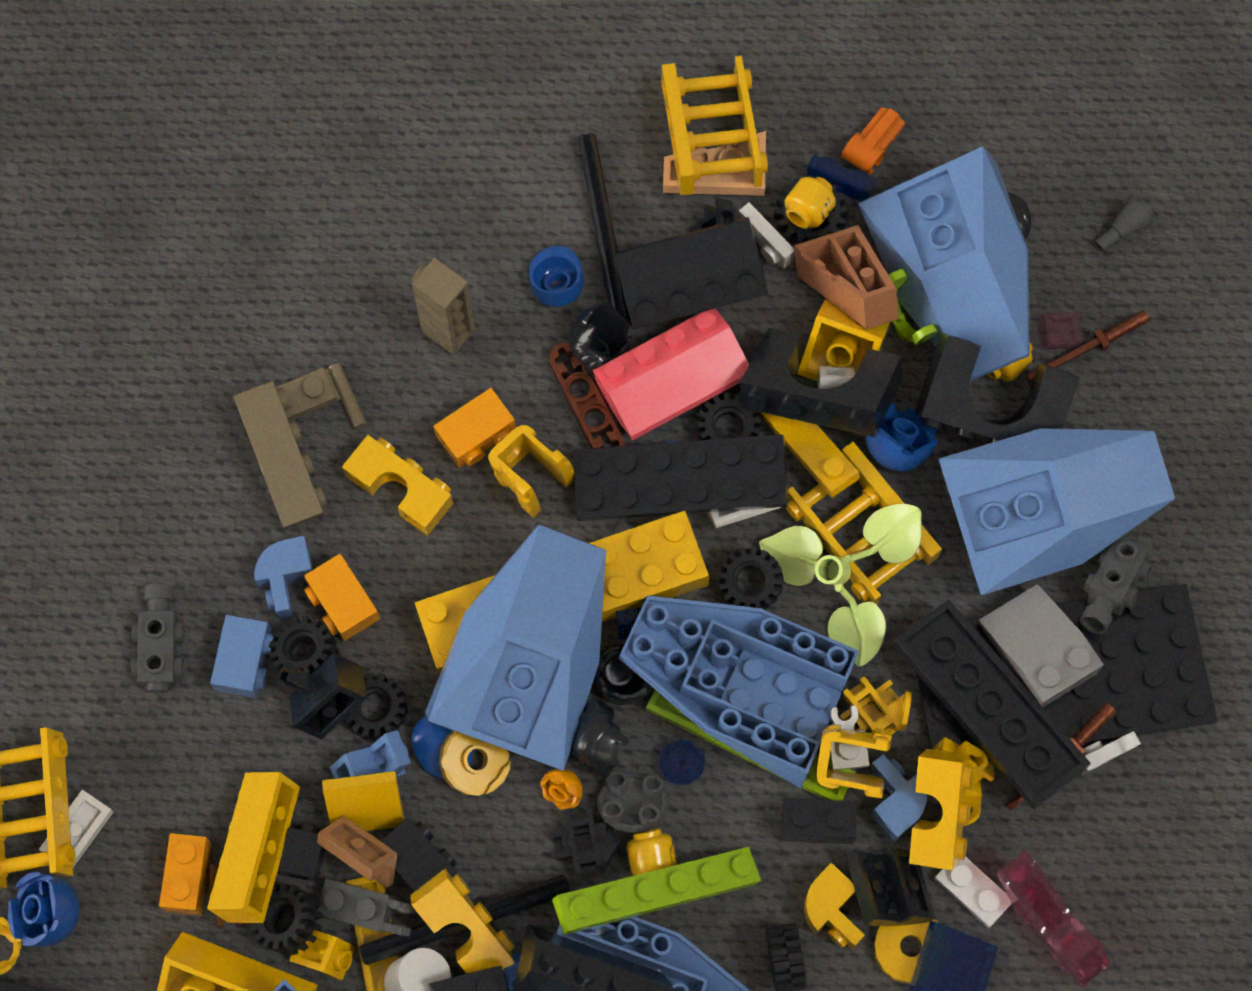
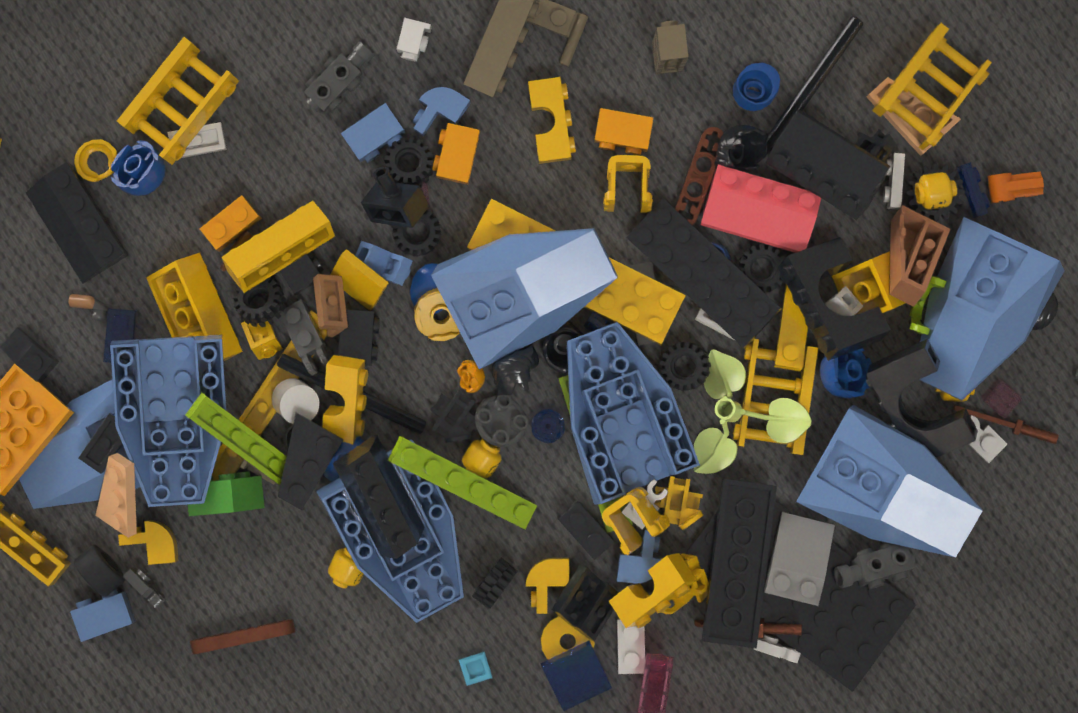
camera: 40 degrees right, 15 degrees up
(195, 536) = (413, 39): none -> white brick
(1093, 381) = (987, 443): none -> white plate

